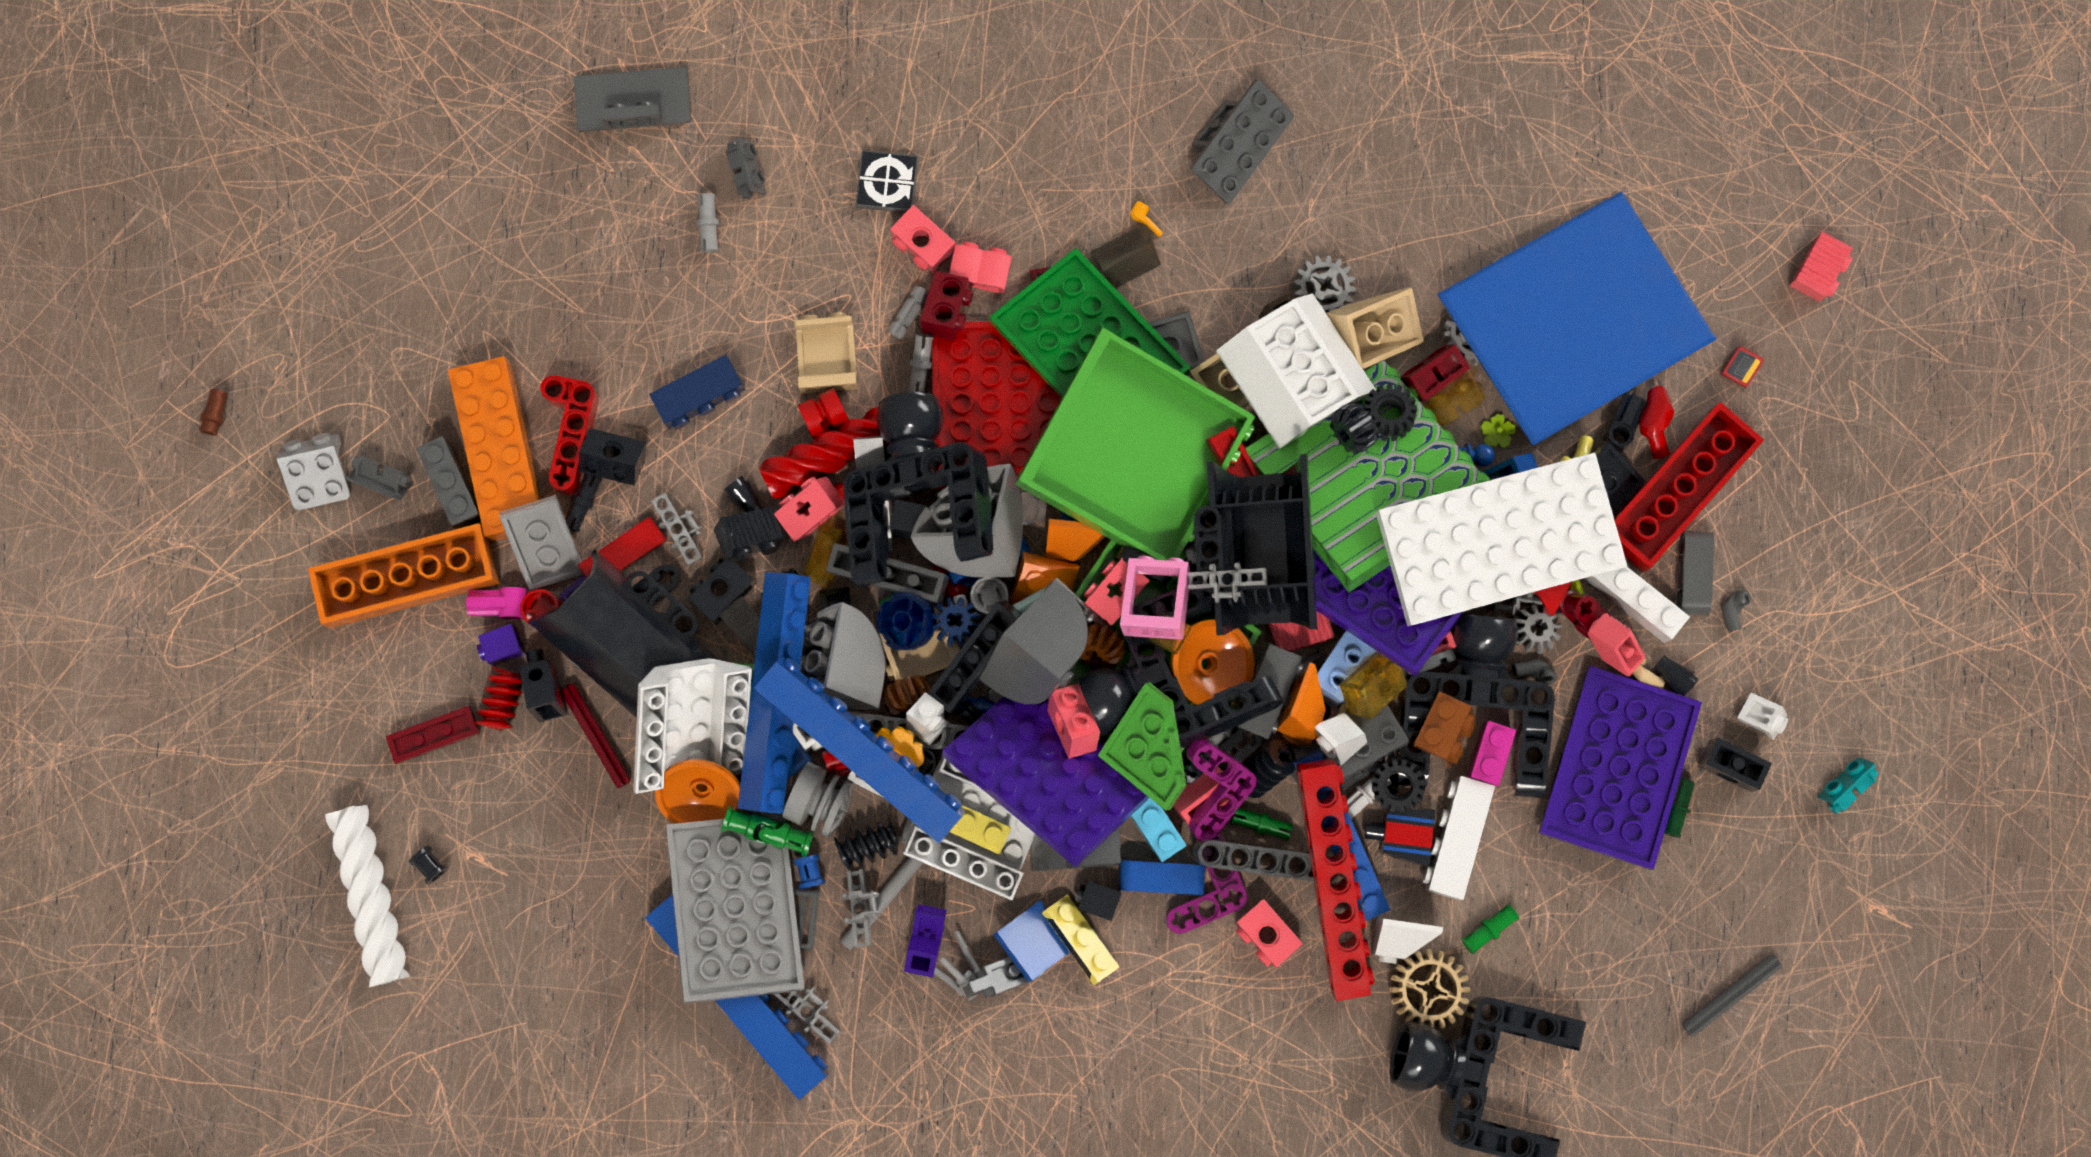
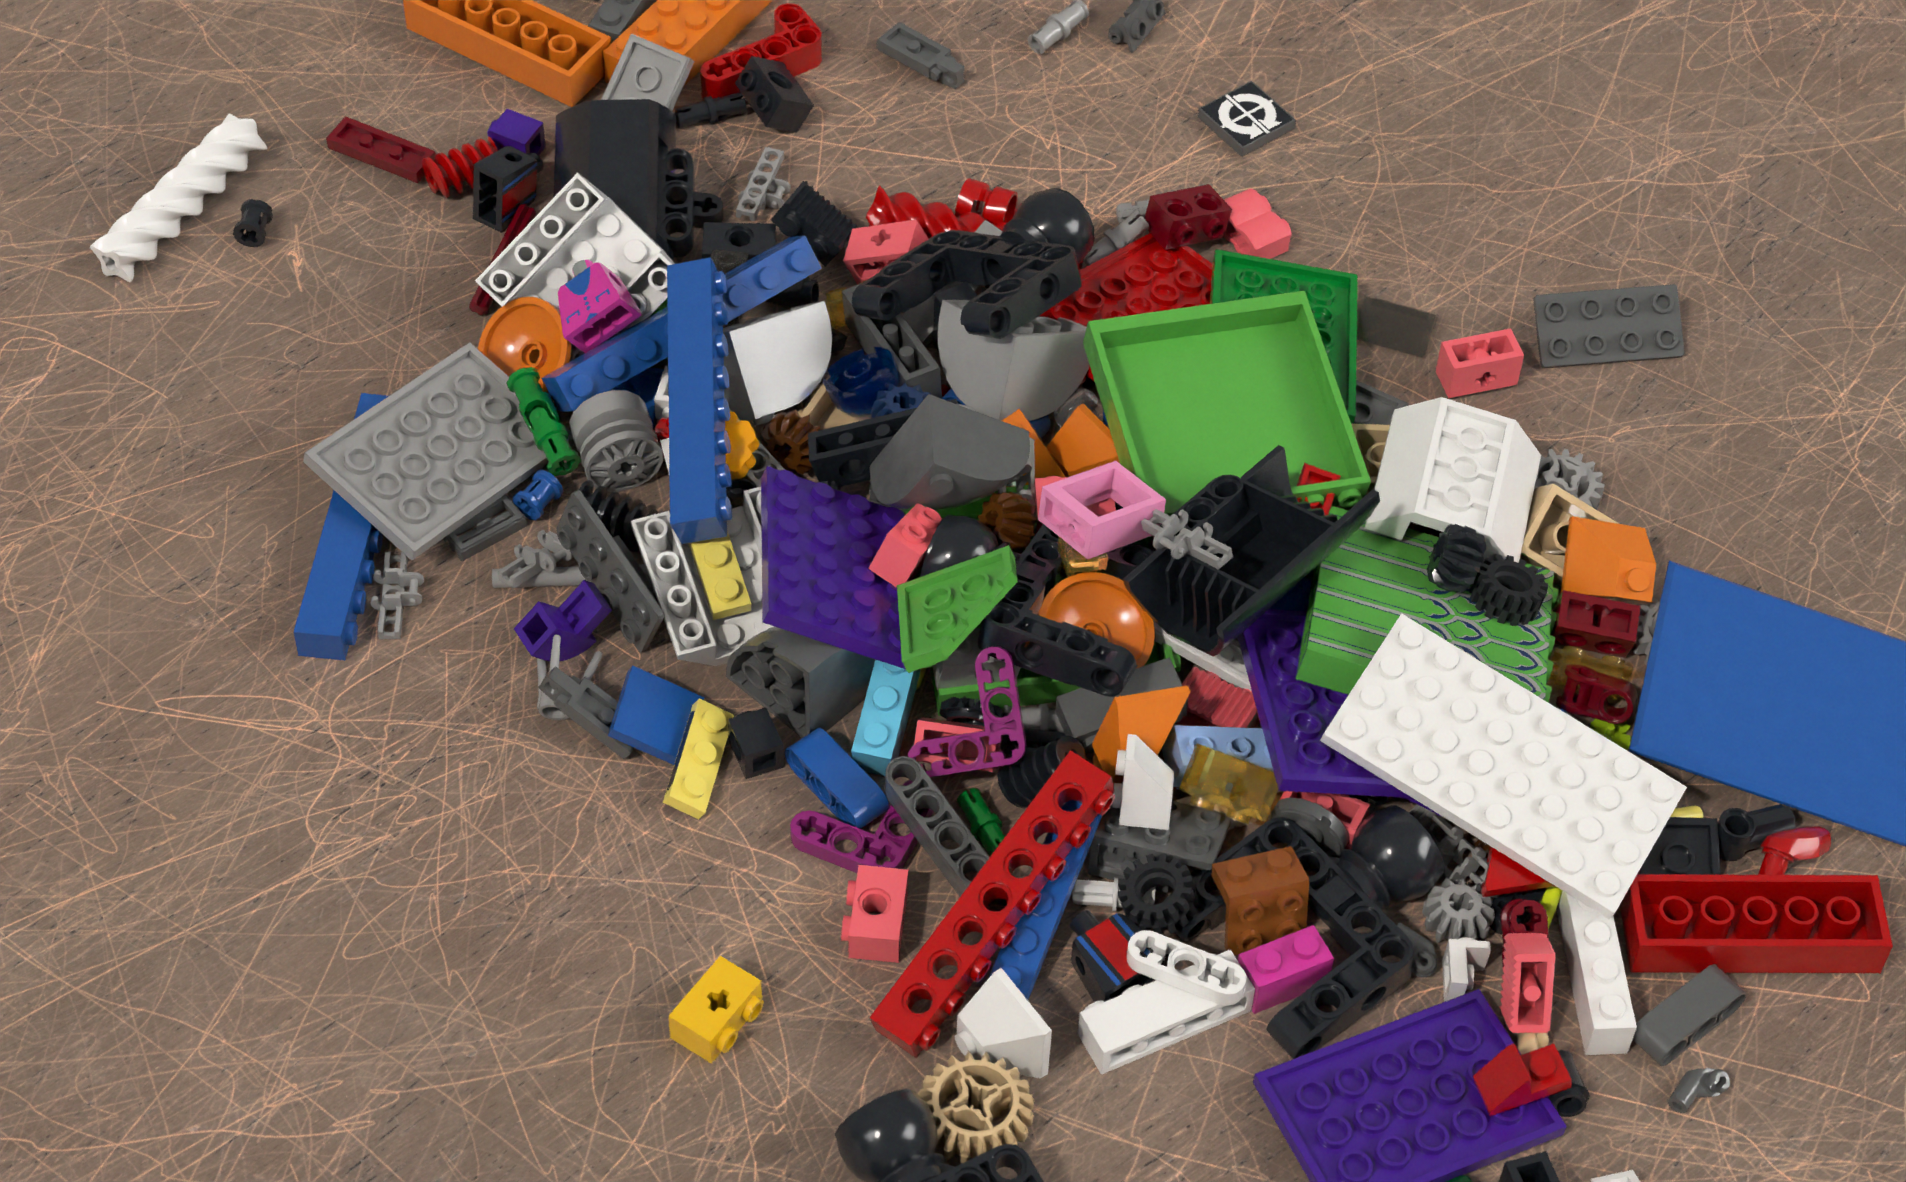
camera: 45 degrees right, 30 degrees down
(499, 603) = (544, 106): dark pink piece -> none
(629, 547) = (716, 166): red tile -> none
(653, 330) = (921, 54): none -> dark grey hinge
(697, 393) = (901, 115): dark blue brick -> none
(719, 737) = (594, 305): none -> dark pink torso
(743, 495) = (847, 199): black cone -> none
(826, 353) = (1046, 166): tan panel -> none
(916, 224) = (1226, 163): coral brick -> none
(920, 881) = (612, 570): none -> dark grey bracket
(926, 718) = (786, 447): white brick -> none
(1139, 214) = (1449, 305): light orange hand -> none
(1204, 246) = (1479, 363): none -> coral brick
(1242, 1057) = (716, 1010): none -> yellow brick
(1409, 326) = (1609, 561): none -> orange slope
(1472, 797) = (1178, 951): none -> white beam
(1477, 416) = (1593, 694): none -> dark red piece
(1490, 929) = (1102, 1119): green pin -> none
(1568, 665) = (1459, 962): none -> white bracket
(1664, 703) = (1520, 1079): none -> red slope

